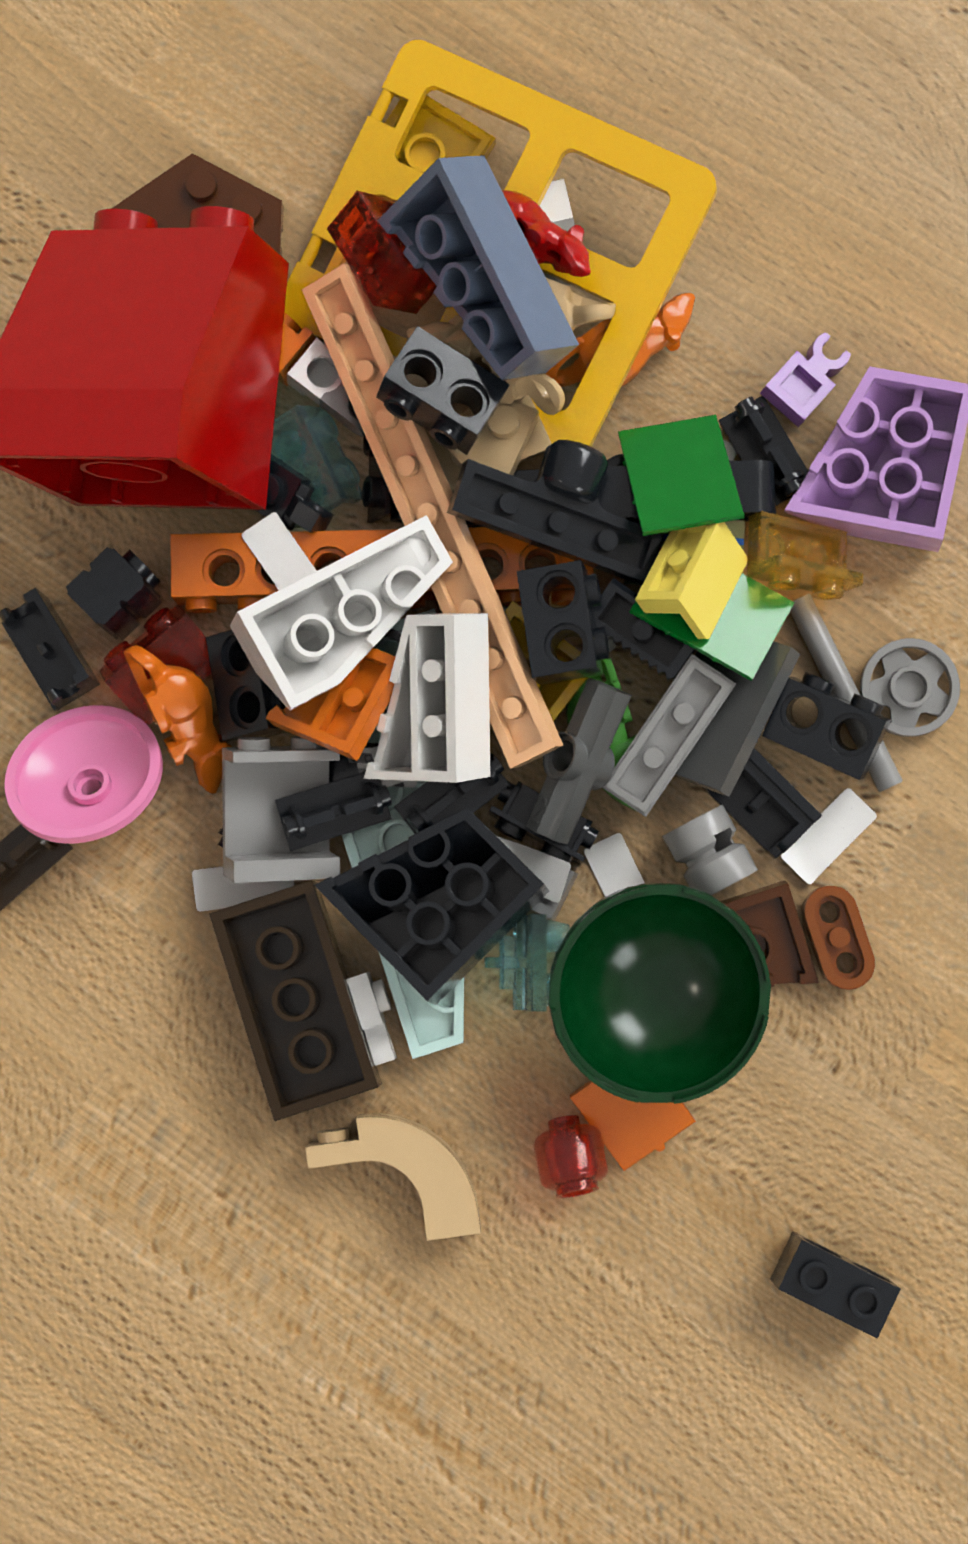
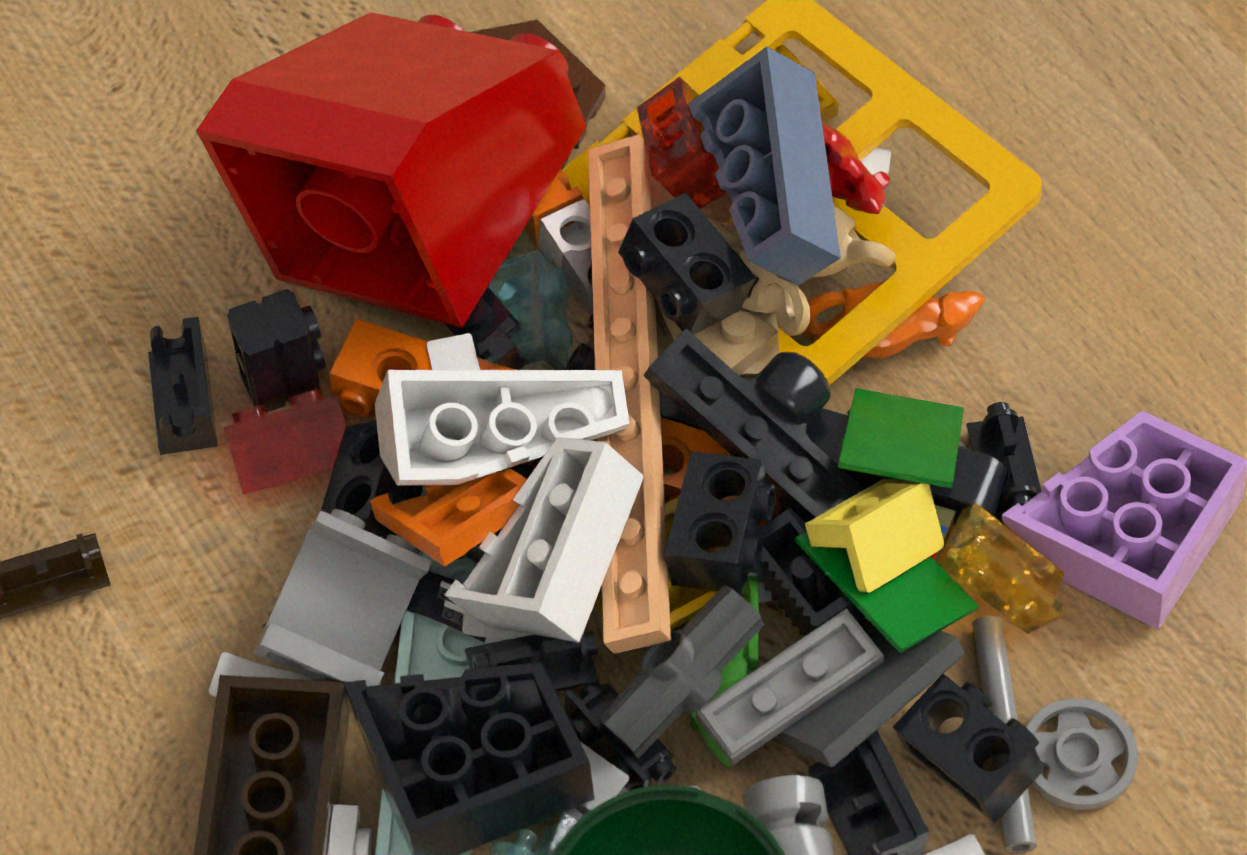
camera: 15 degrees right, 25 degrees down
(70, 759) = (158, 506): bright pink dish -> none
(183, 706) = (291, 476): orange animal -> none
(333, 810) = (399, 630): black hinge -> none
(803, 381) = (1069, 420): plate -> none

